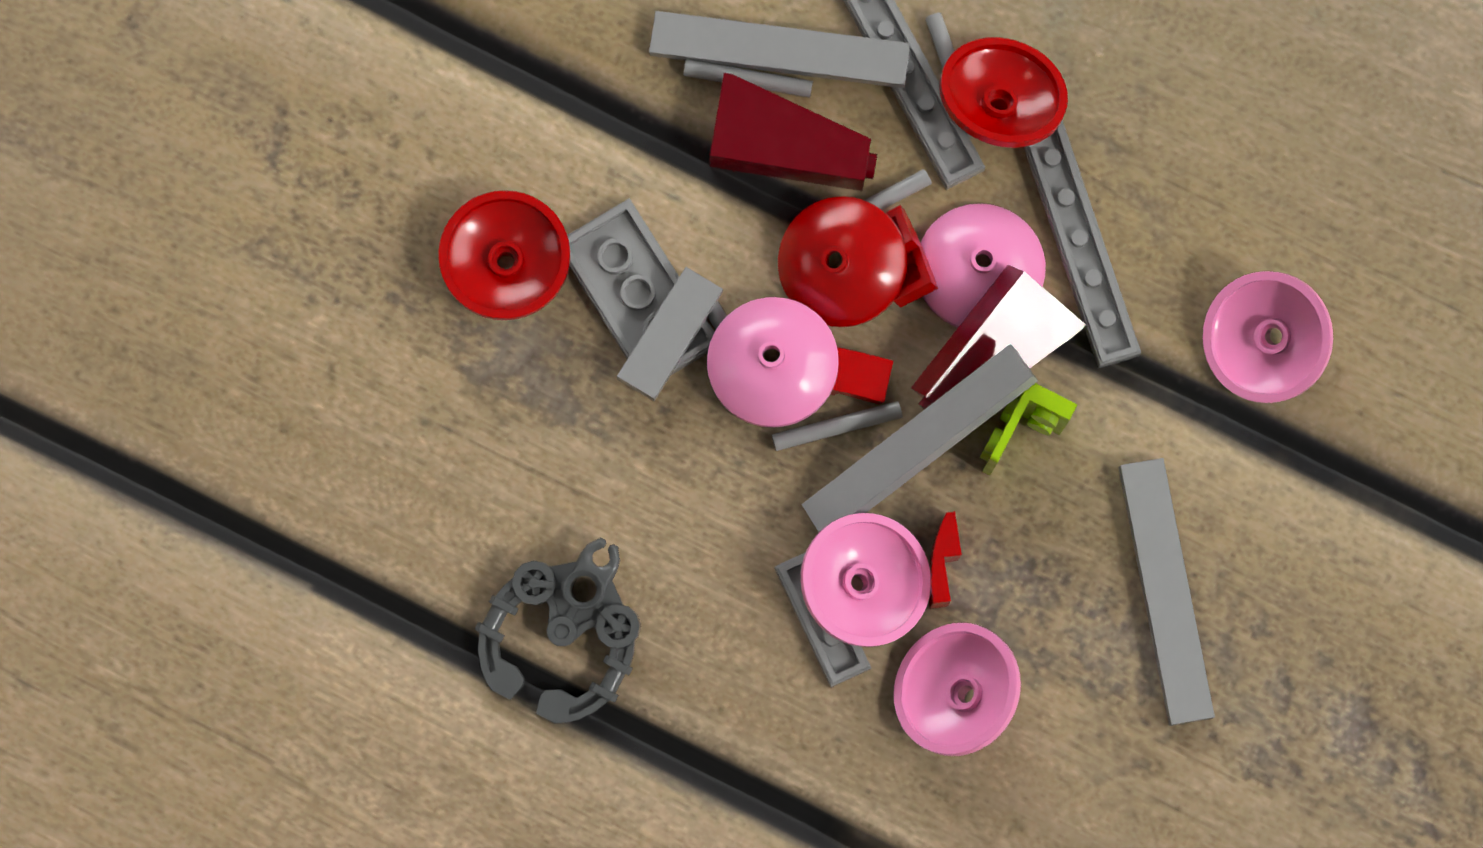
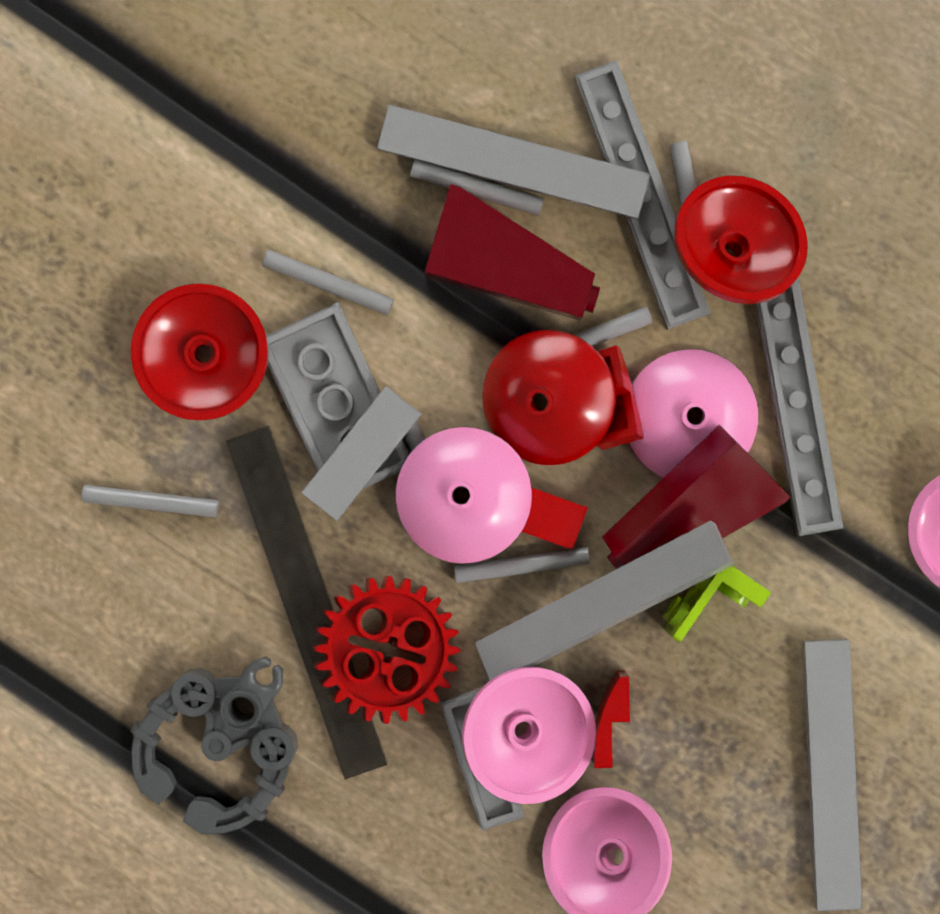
camera: 10 degrees right, 10 degrees up
(468, 407) = (150, 501): none -> light grey bar
(617, 181) = (328, 282): none -> light grey bar
(633, 488) = (301, 590): none -> clear smoke tile
(712, 555) = (375, 687): none -> red gear

